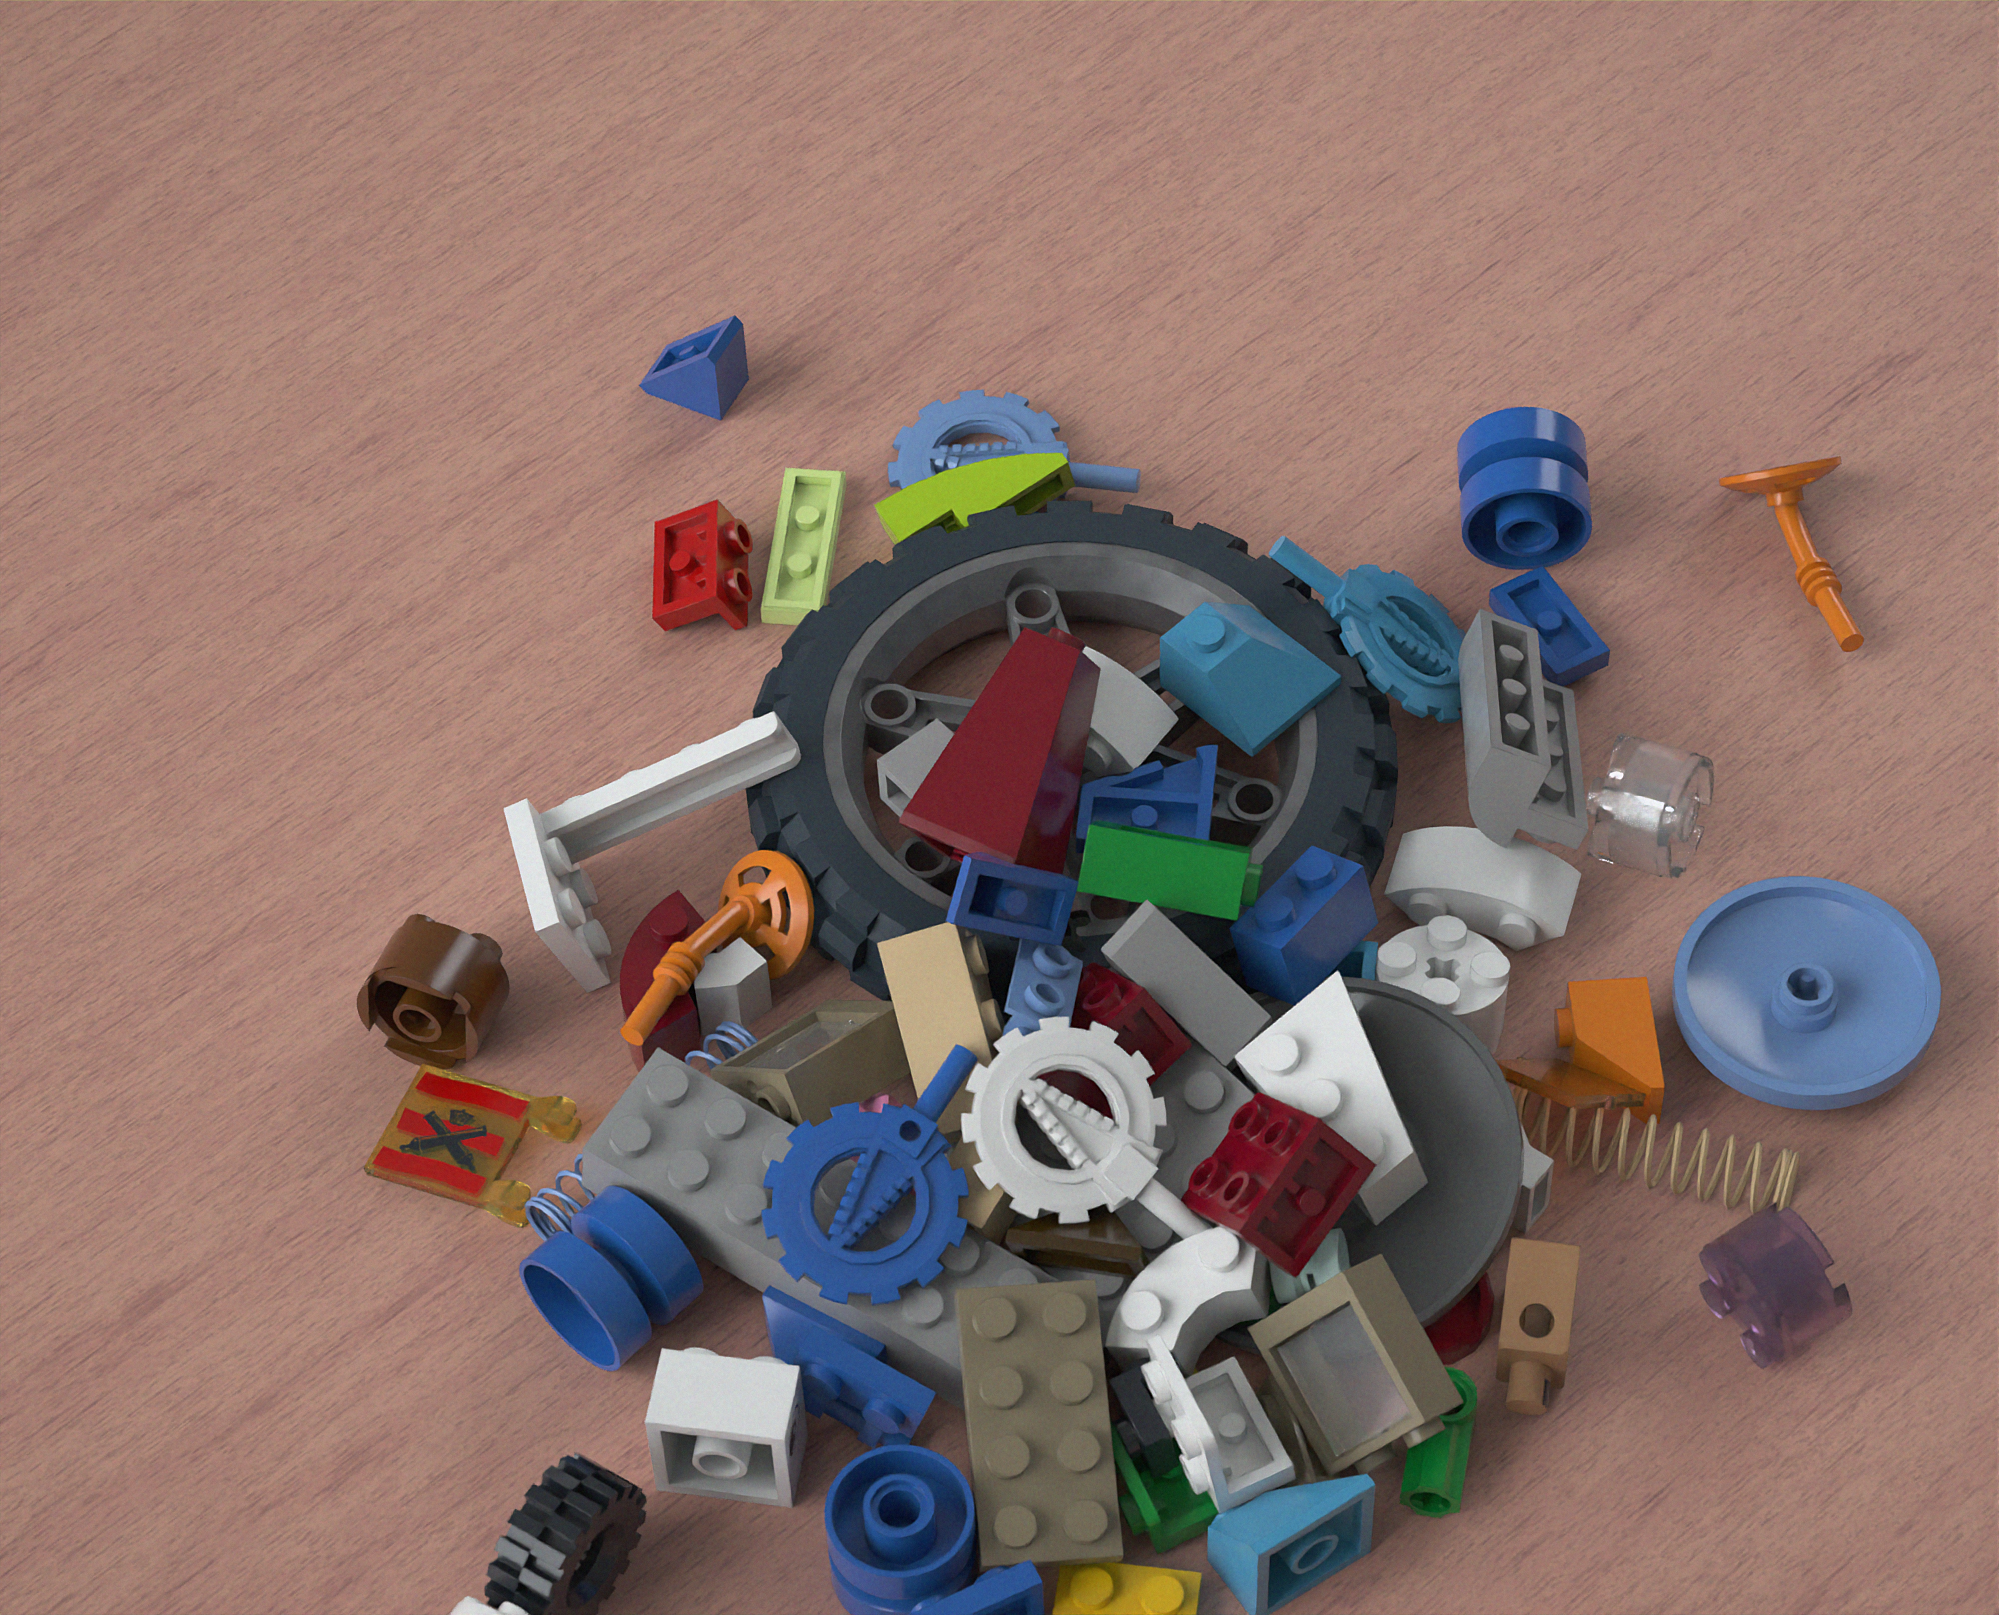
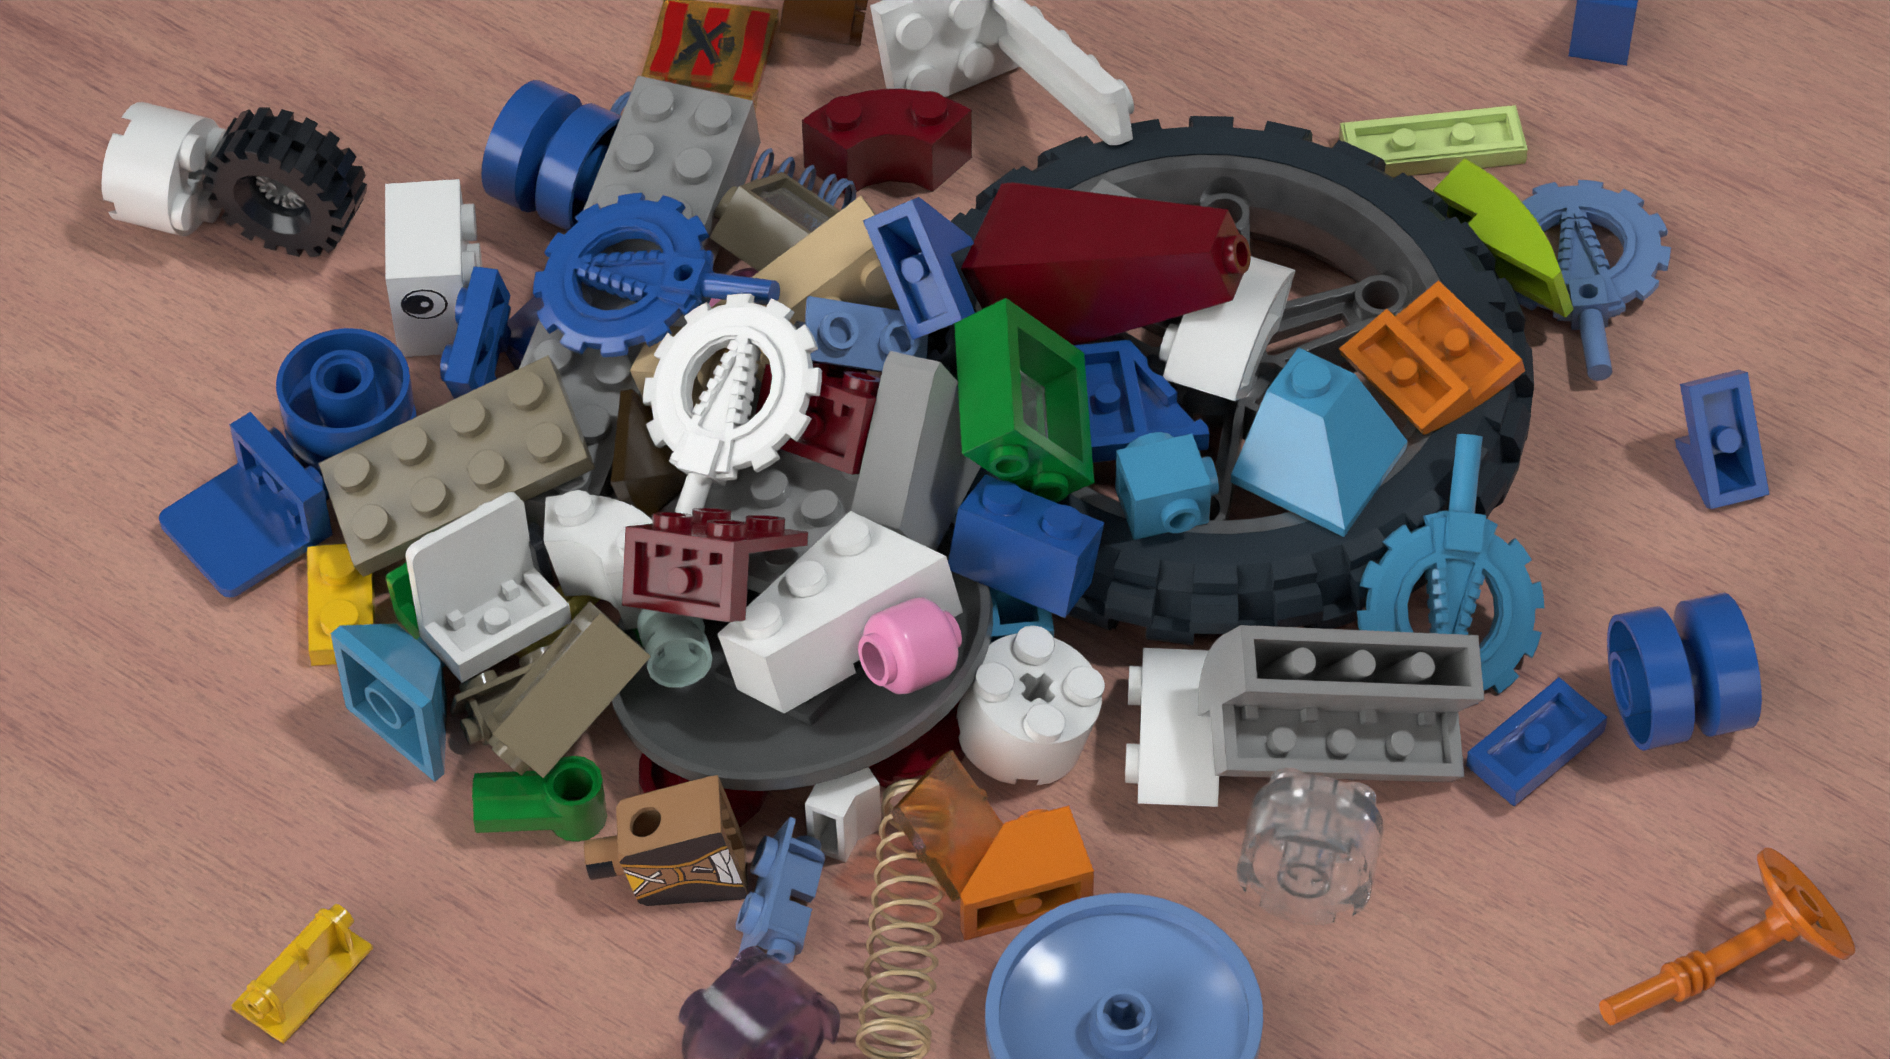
camera: 75 degrees right, 0 degrees up
(701, 567) = (1372, 73): red bracket -> none
(732, 987) = (895, 174): white piece -> none
(744, 911) = (966, 172): orange dish -> none
(1157, 562) = (1433, 359): none -> orange slope
(1251, 410) = (1722, 440): none -> blue slope
(1265, 796) = (1164, 484): none -> dark azure brick
(1412, 1036) = (910, 646): none -> bright pink head
(1607, 1266) = (783, 869): none -> medium blue hinge

